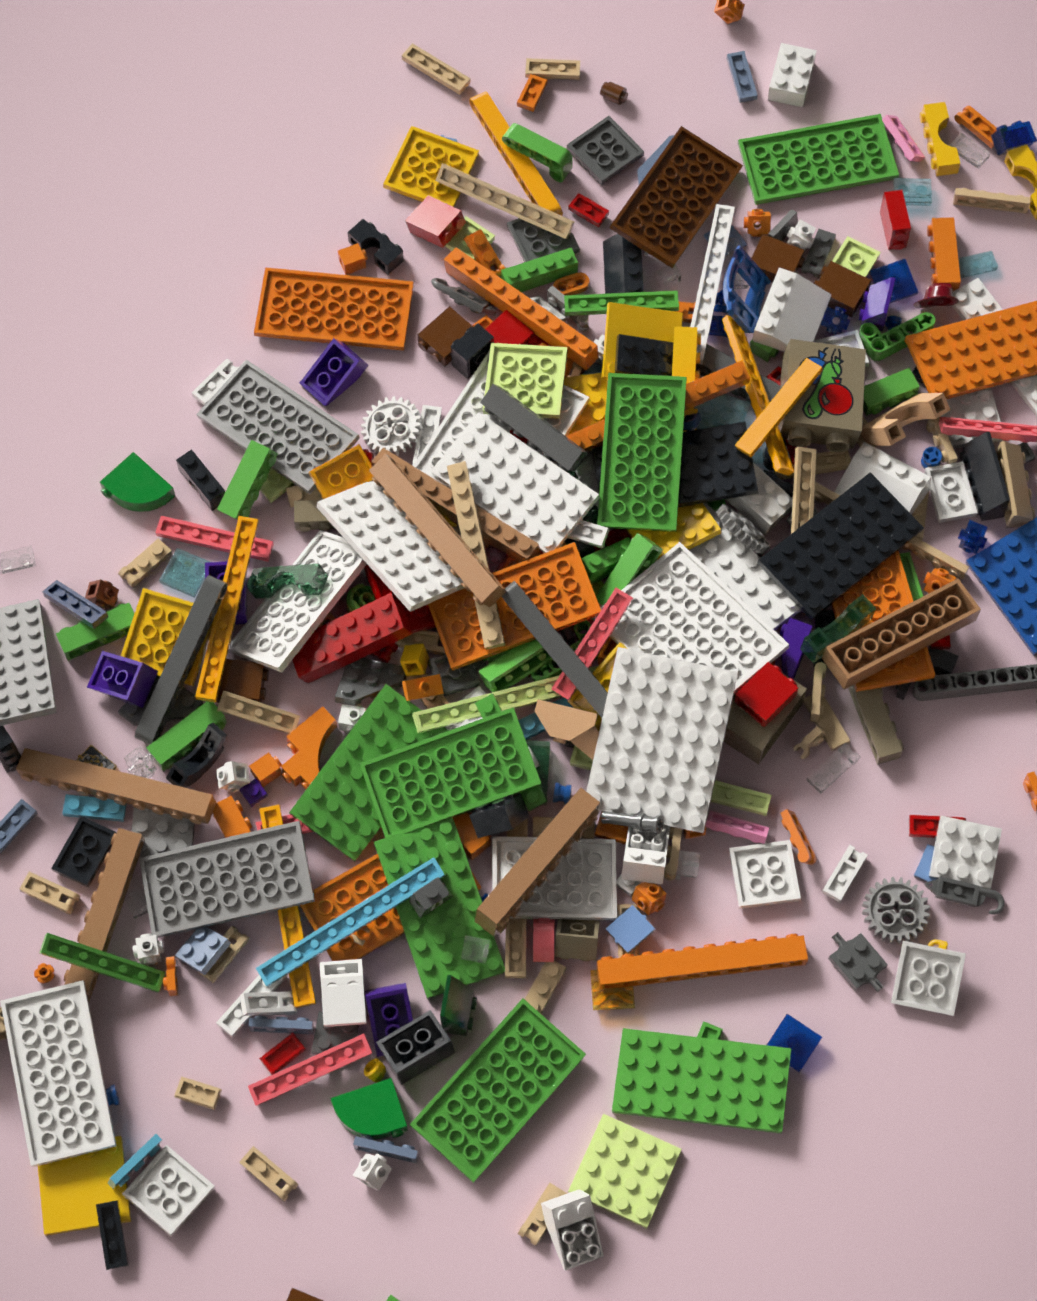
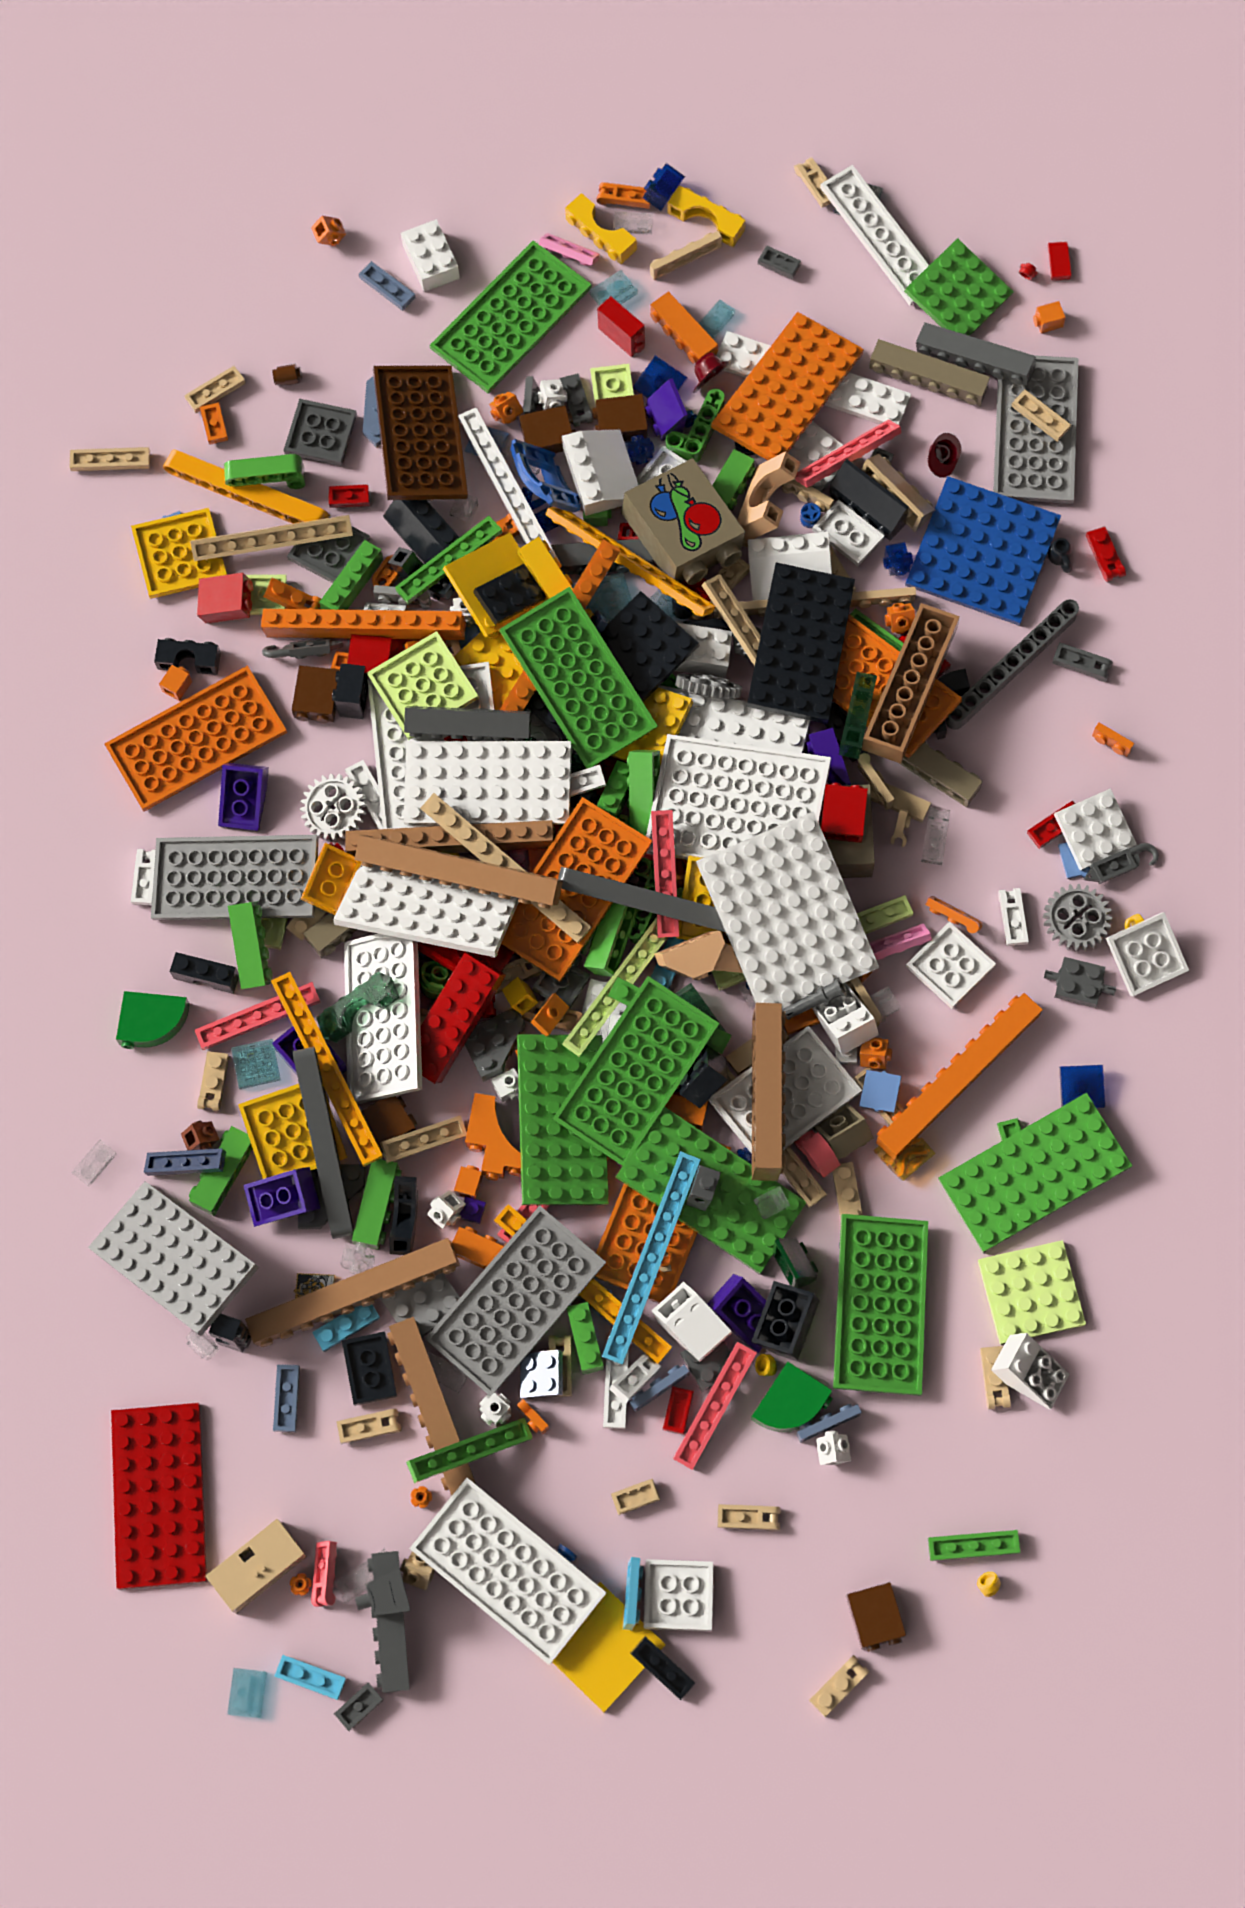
camera: 35 degrees left, 5 degrees up
(256, 946) = (585, 1338): none -> bright green brick
(562, 793) = (734, 1019): blue wheel -> none
(589, 284) = (406, 563): none -> black arch
(778, 407) = (663, 559): light orange tile -> none

